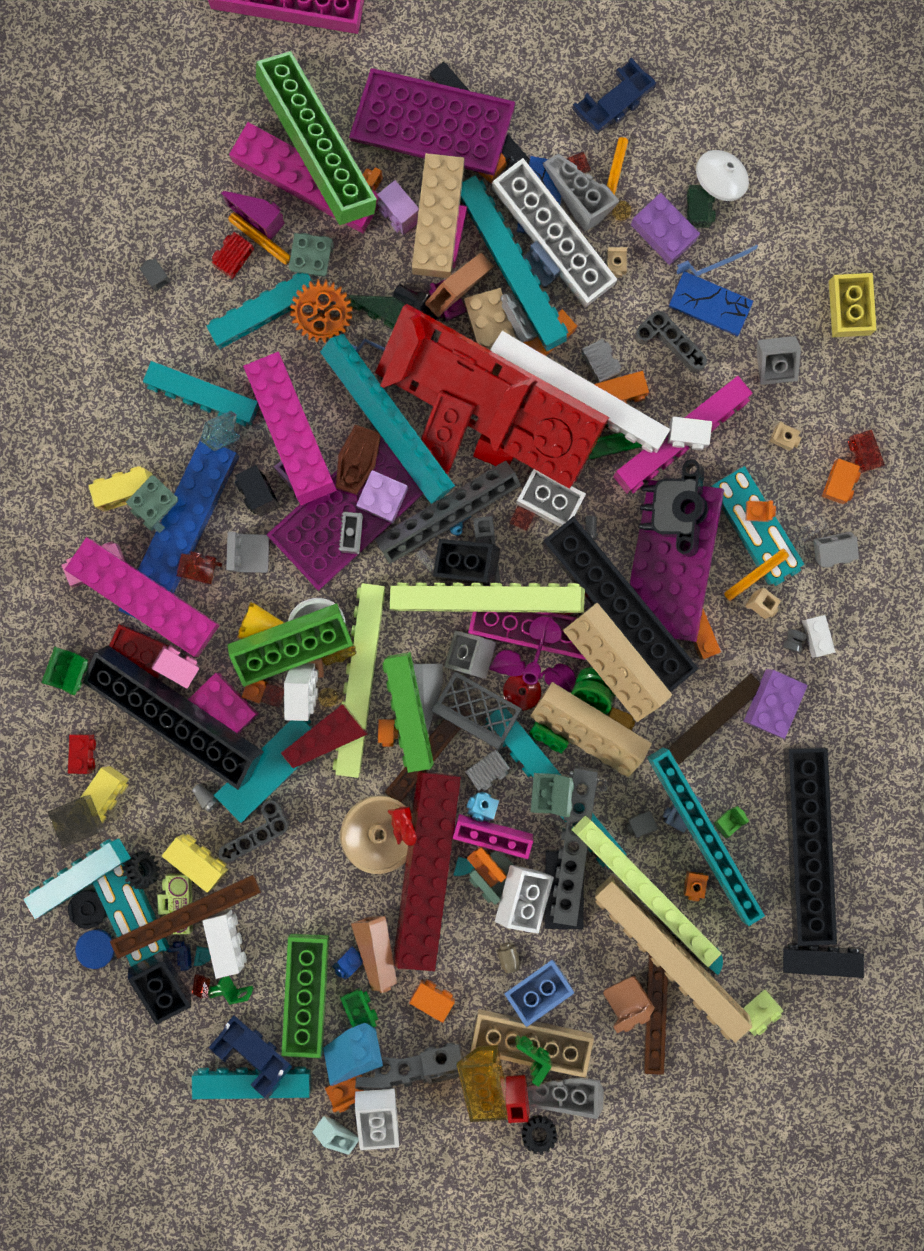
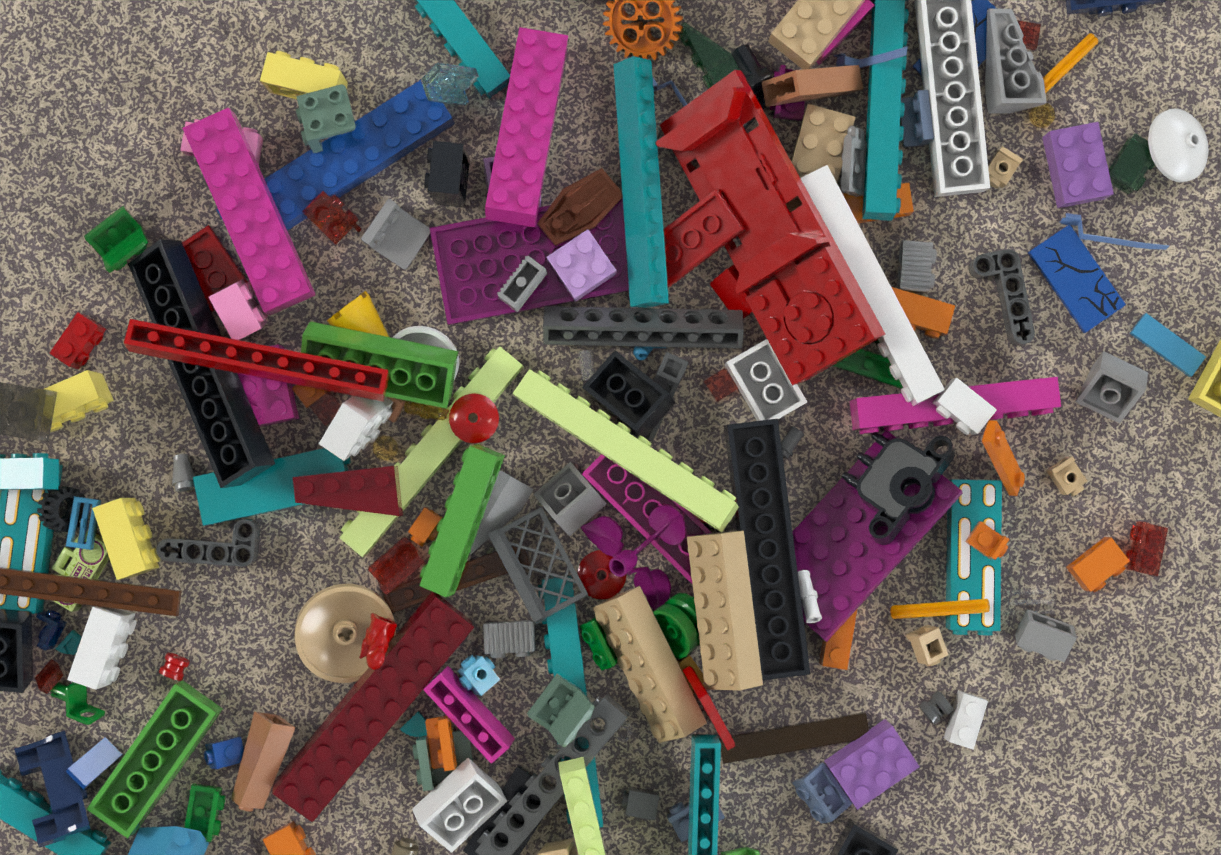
camera: 25 degrees right, 0 degrees up
(154, 875) = (83, 525): none -> dark azure tile
(209, 690) = (256, 360): none -> red brick
(267, 1023) = (94, 763): none -> tile
(279, 927) = (174, 666): none -> red wheel
(383, 646) = (487, 418): none -> red dish
(383, 769) = (396, 564): none -> clear red bracket
(469, 255) = (843, 60): none -> medium blue piece
(647, 732) = (709, 707): none -> red tile
(667, 620) = (808, 597): none -> white pin
(736, 450) = (1003, 458): none -> orange plate
(755, 743) = (822, 794): none -> sand blue bracket
(797, 310) = (1167, 345): none -> dark azure tile

